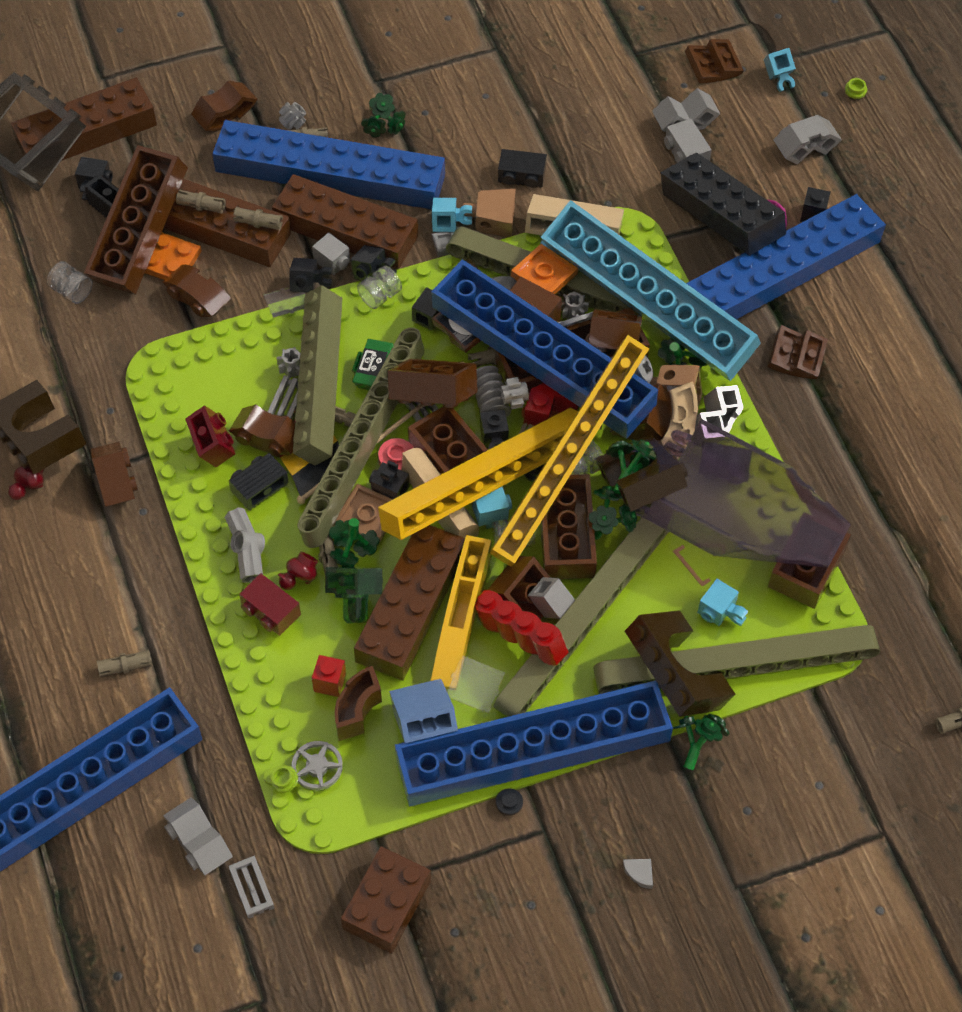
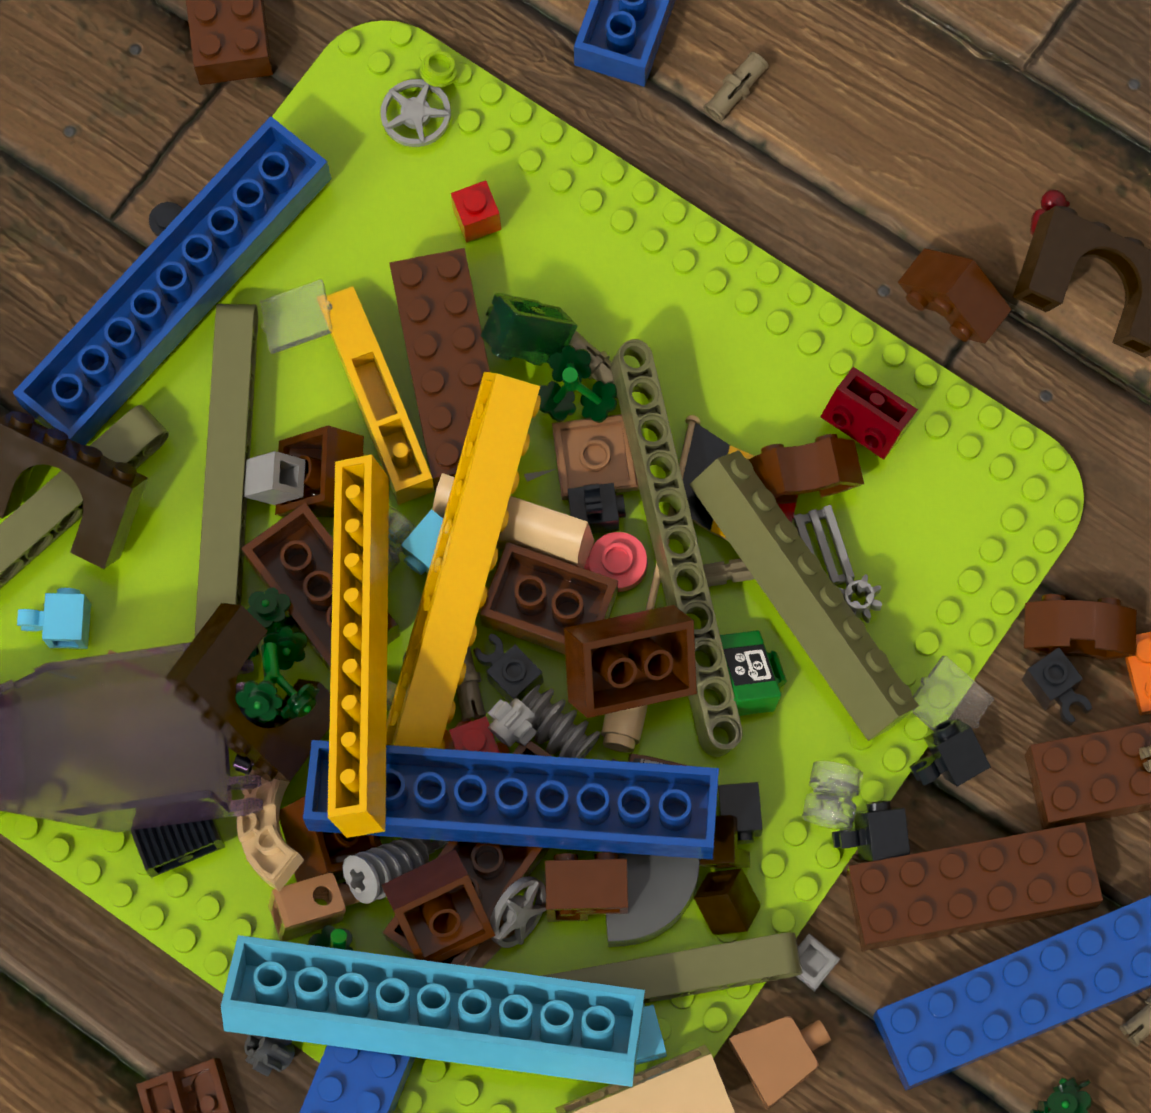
camera: 150 degrees right, 15 degrees up
(230, 276) = (1053, 682): none -> black brick
(246, 544) = (706, 306): light grey piece -> none
(258, 218) = (1078, 772): dark tan pin -> none
(258, 481) = (762, 402): black brick -> none
(269, 604) = (613, 247): dark red brick -> none
(299, 567) = (614, 318): dark red animal -> none
(331, 253) = (949, 820): light grey brick -> none
(355, 702) = (419, 198): reddish brown brick -> none
(423, 710) = (327, 229): medium blue brick -> none
(446, 214) = (838, 997): medium azure brick -> none
(521, 627) = (271, 401): red brick -> none
(545, 269) = (612, 951): orange plate -> none
(573, 304) = (537, 944): light grey gear -> none
(722, 407) = (221, 880): light grey brick -> none

